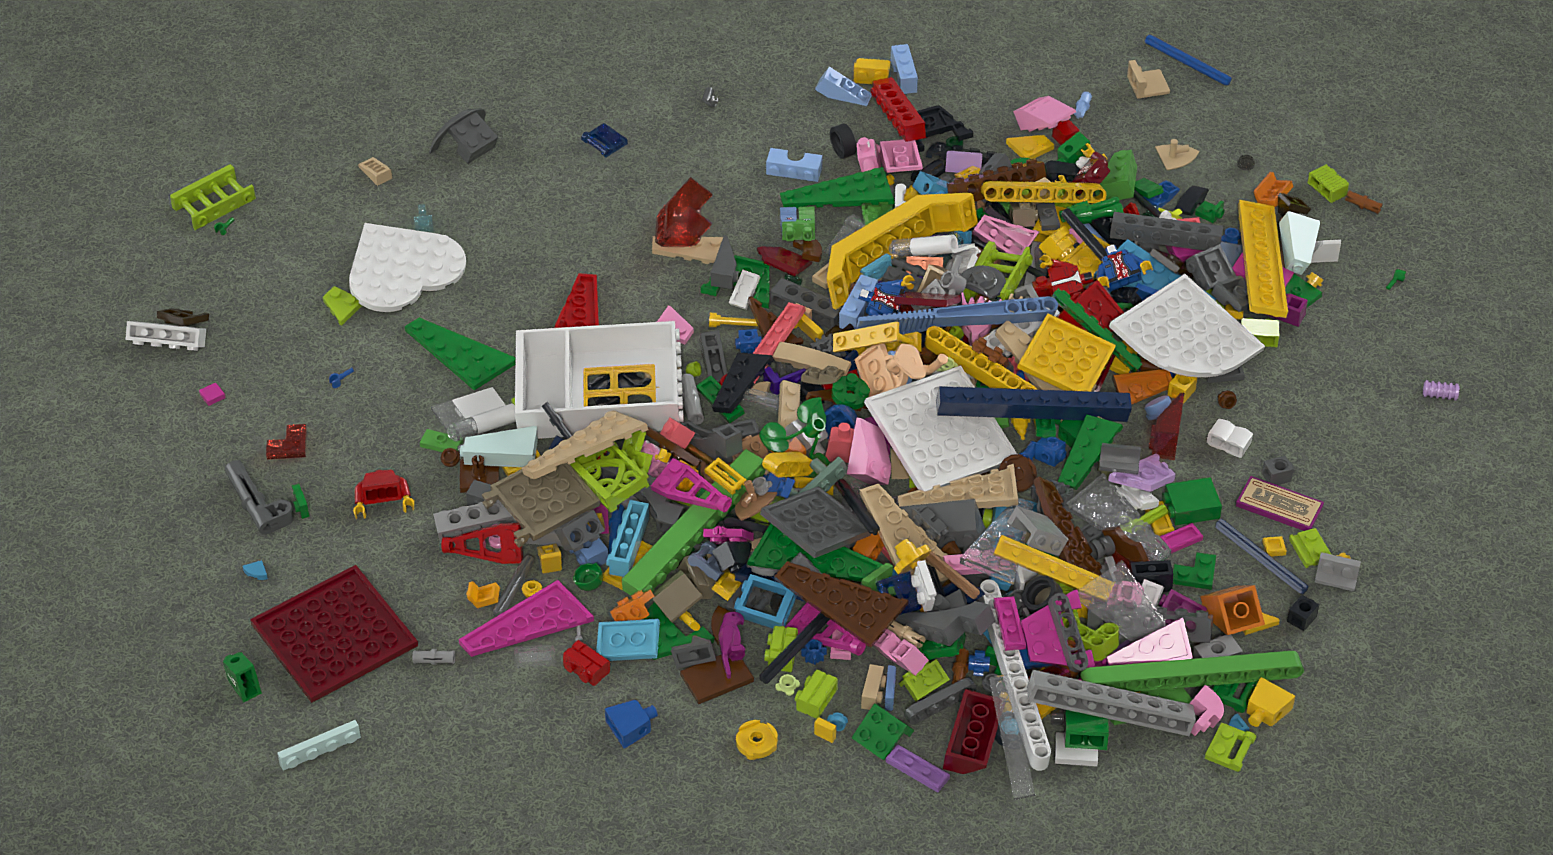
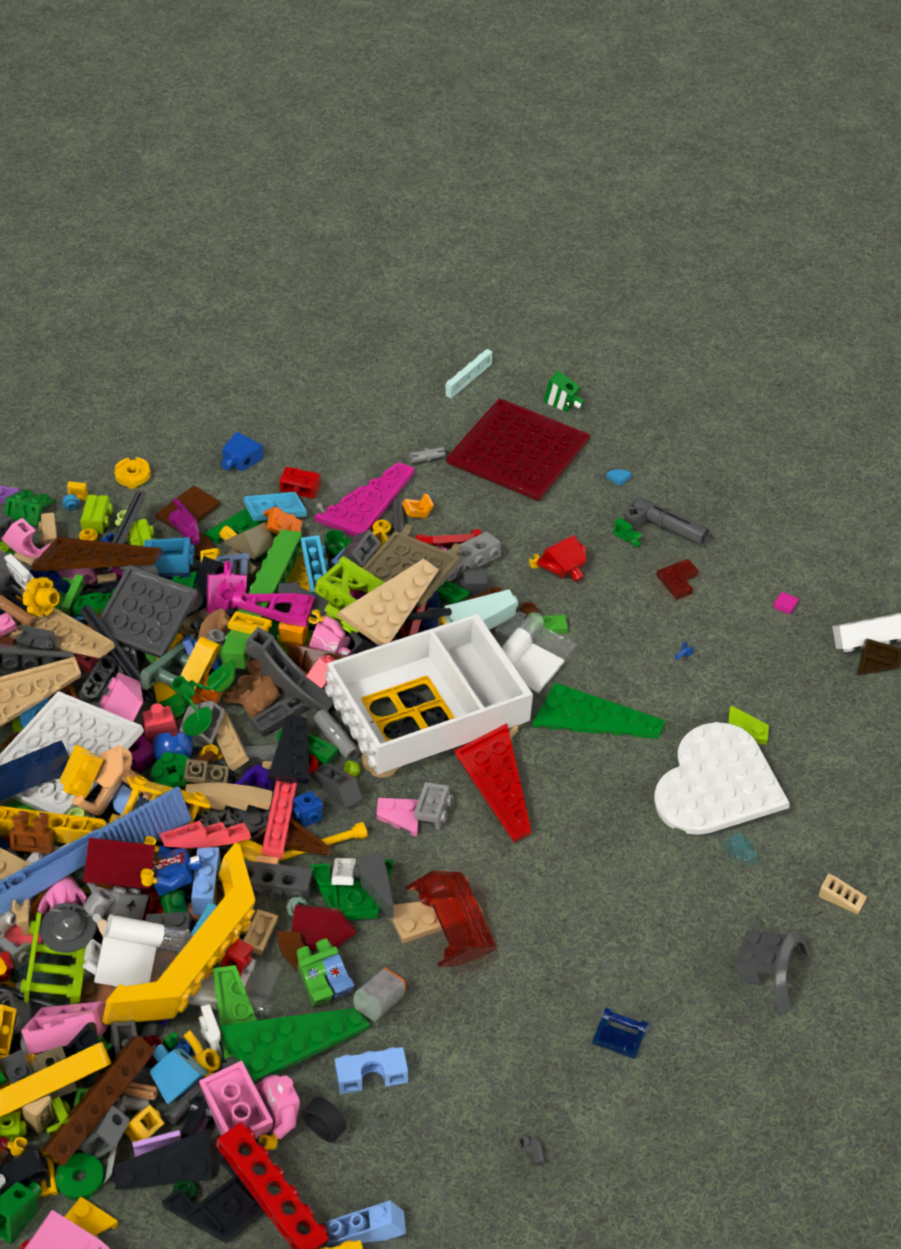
camera: 155 degrees right, 0 degrees up
(645, 312) = (433, 804): none -> light grey bracket
(694, 653) = (210, 511): dark grey slope -> none
(763, 199) = (379, 994): none -> flat silver piece
(837, 322) = (197, 836): none -> coral slope
(837, 672) = (88, 534): none -> yellow plate
(890, 688) = (35, 538): medium blue tile -> none
(929, 364) = (80, 771): none -> yellow bracket

